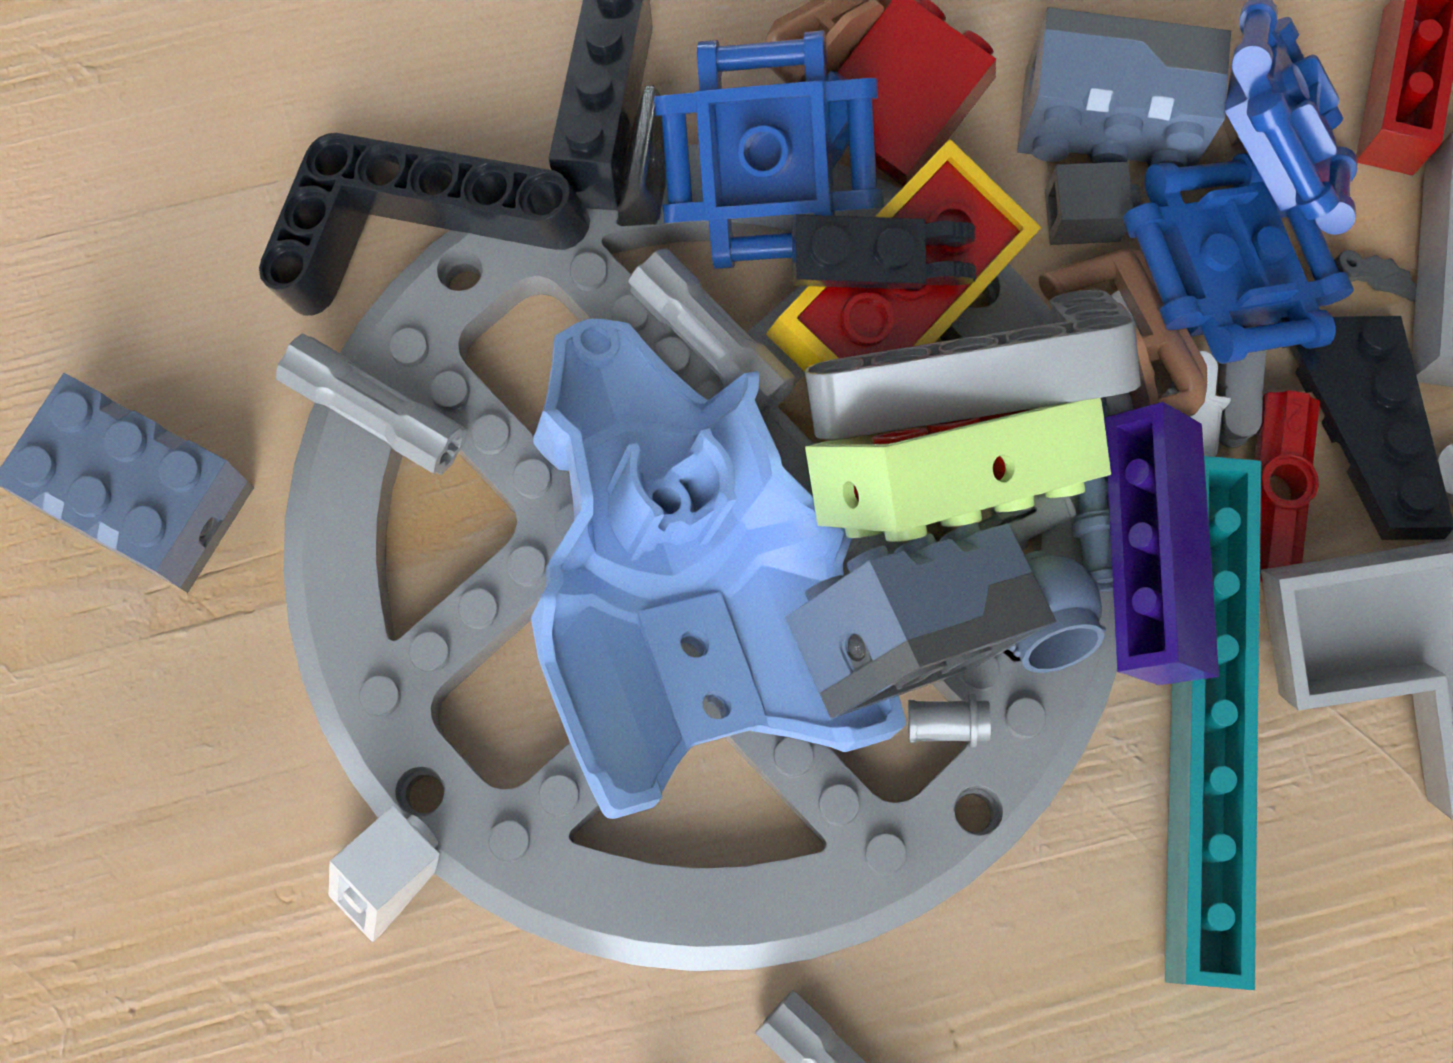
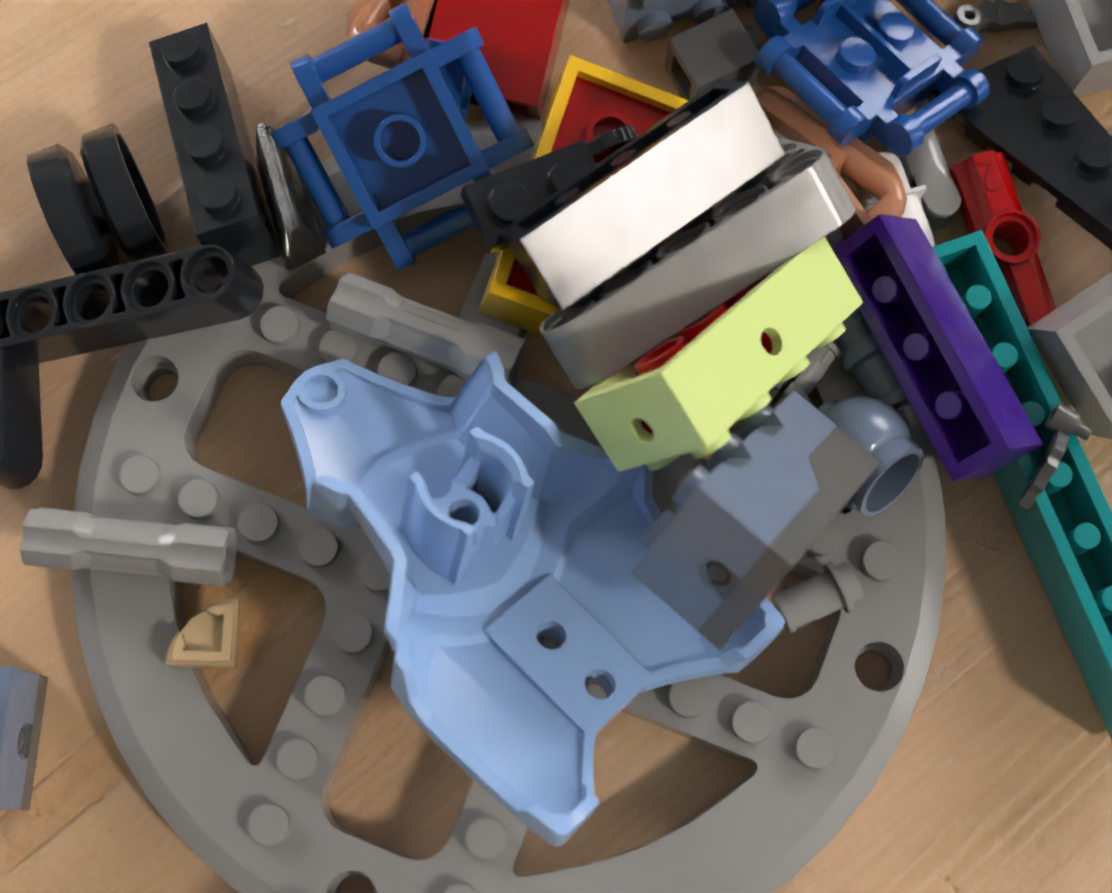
camera: 25 degrees left, 0 degrees up
(402, 513) = (208, 638): none -> tan tile
(480, 95) = (91, 207): none -> black wheel
(954, 290) = (644, 194): none -> brick
(1248, 667) = (1062, 423): none -> dark grey piece

